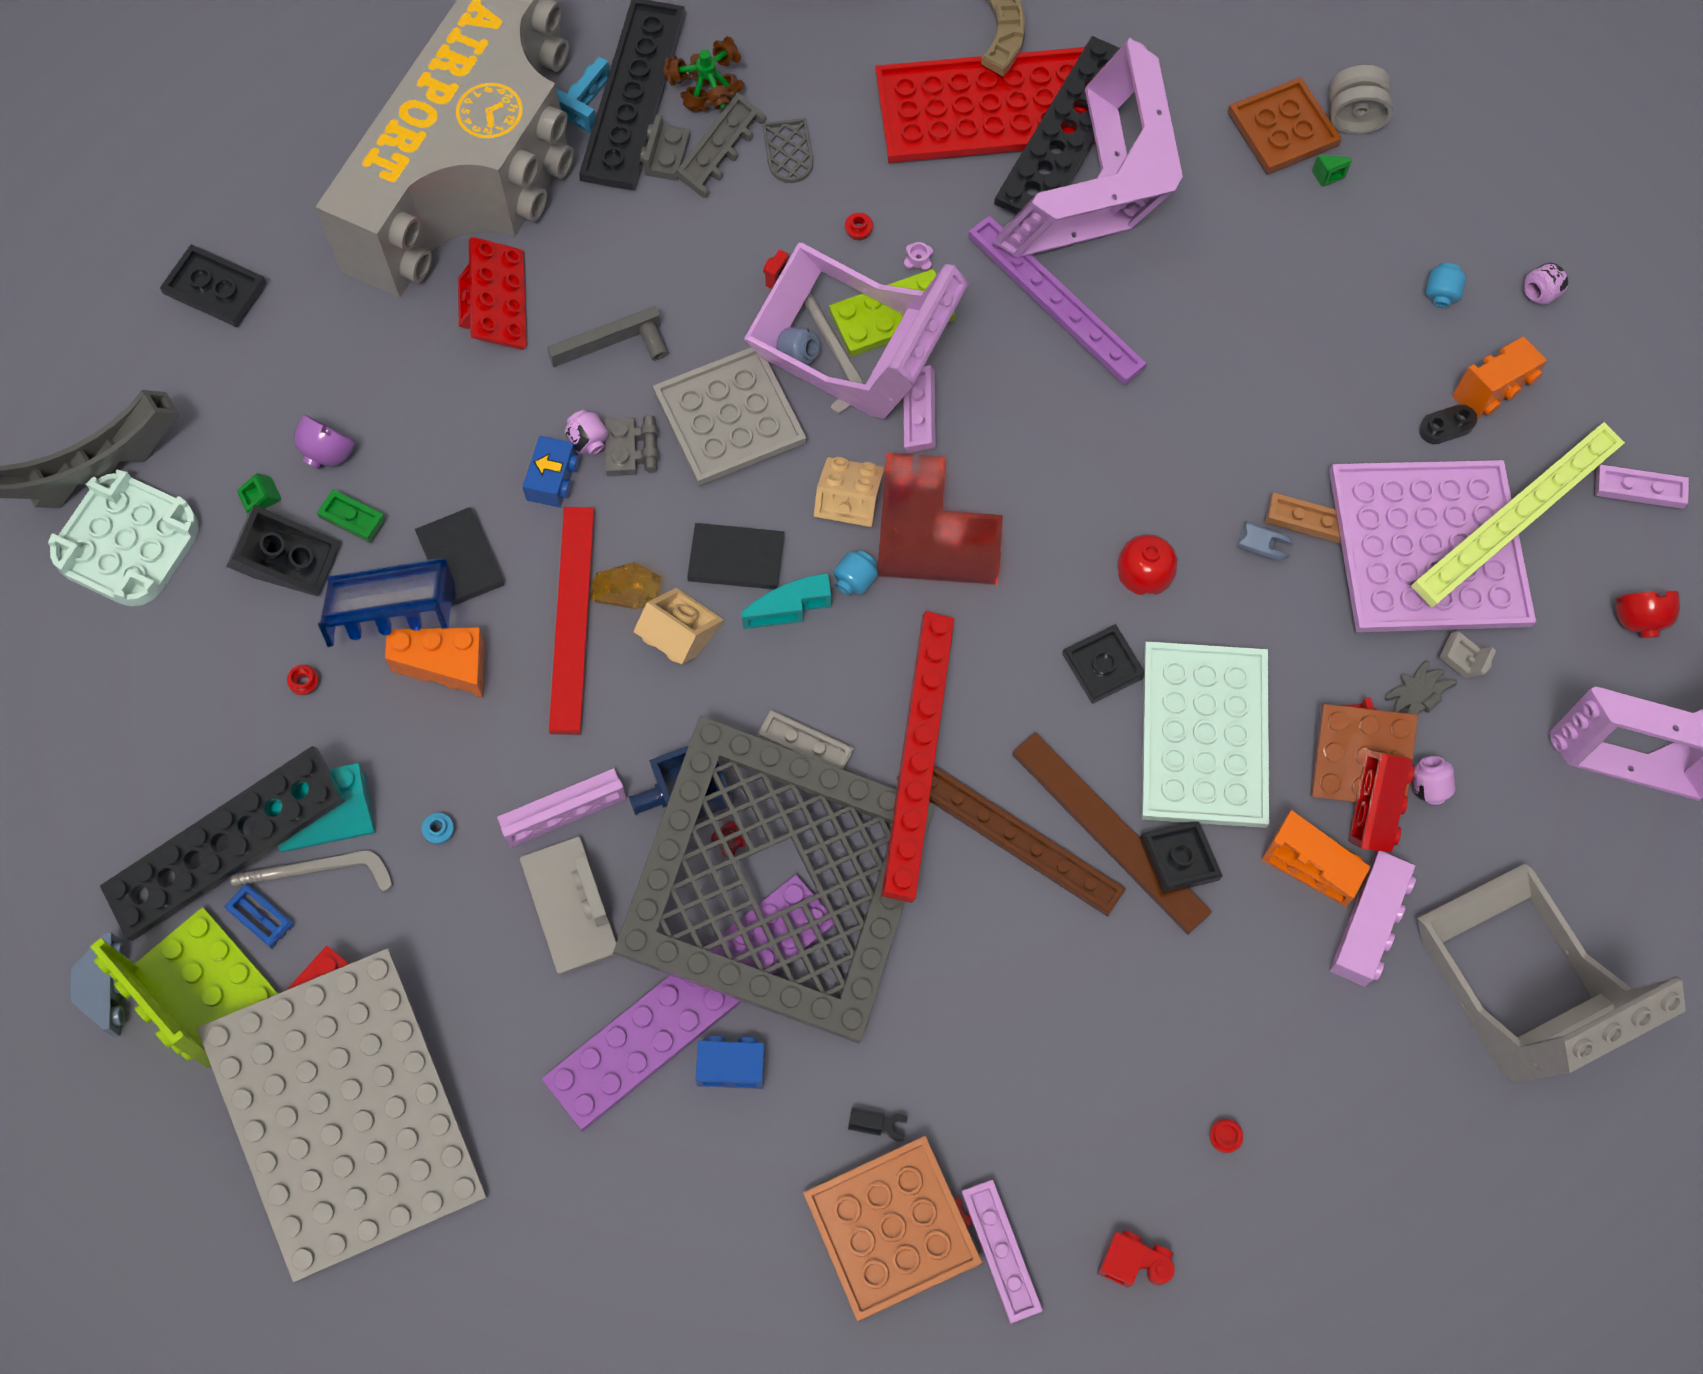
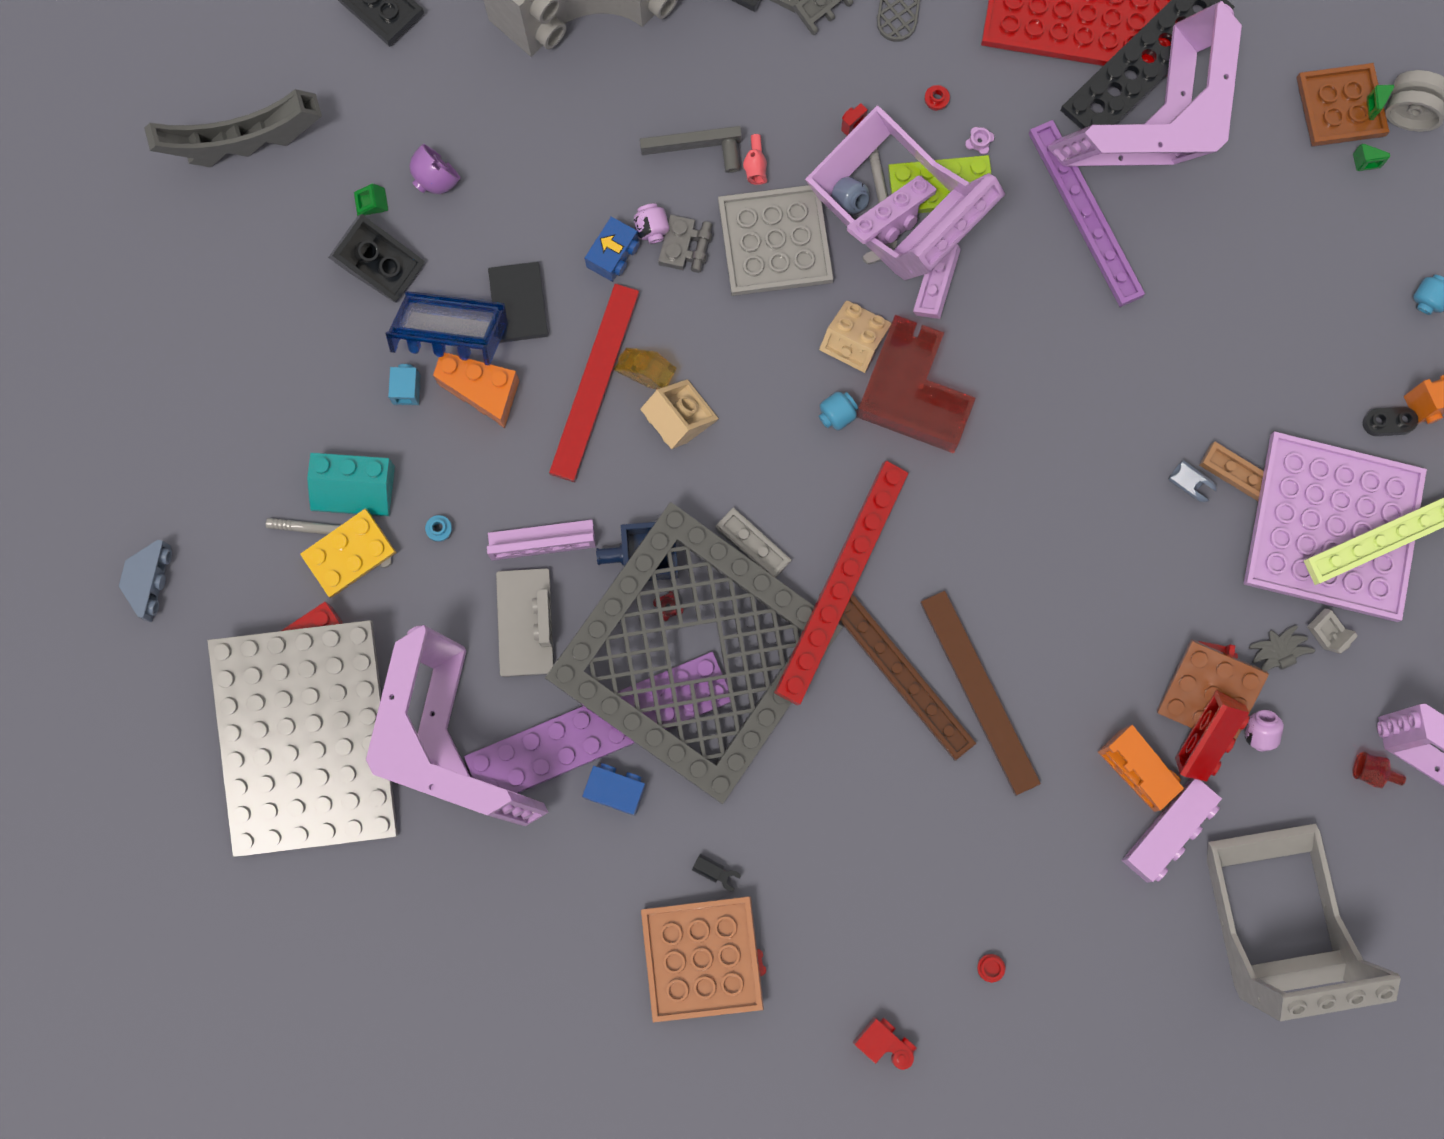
camera: 20 degrees right, 10 degrees up
(124, 539) = (254, 210): light aqua tile -> none
(186, 982) = (210, 599): lime bracket -> none
(203, 835) = (279, 502): black plate -> none
(277, 932) = (293, 576): blue tile -> none
(298, 673) = (361, 365): red plate -> none
(338, 886) = (348, 553): none -> yellow plate
(351, 515) = (439, 241): green plate -> none
(353, 681) = (404, 385): none -> dark azure brick
(485, 1081) = (430, 758): none -> lavender window
(493, 294) = (609, 76): red bracket -> none
(683, 341) = (755, 162): none -> coral piece
(735, 556) = (744, 366): black tile -> none
(788, 602) = (774, 419): teal slope -> none
(851, 352) = (893, 214): none -> lavender bracket
(1001, 1252) = (782, 1003): lavender plate -> none
(1103, 663) = (1021, 548): black tile -> none
(1147, 565) = (1086, 473): red cylinder -> none
(1180, 857) = (1030, 731): black tile -> none
(1205, 735) = (1086, 633): light aqua plate -> none
(1319, 108) = (1377, 99): none -> green slope
(1567, 789) = (1375, 771): none -> clear red piece

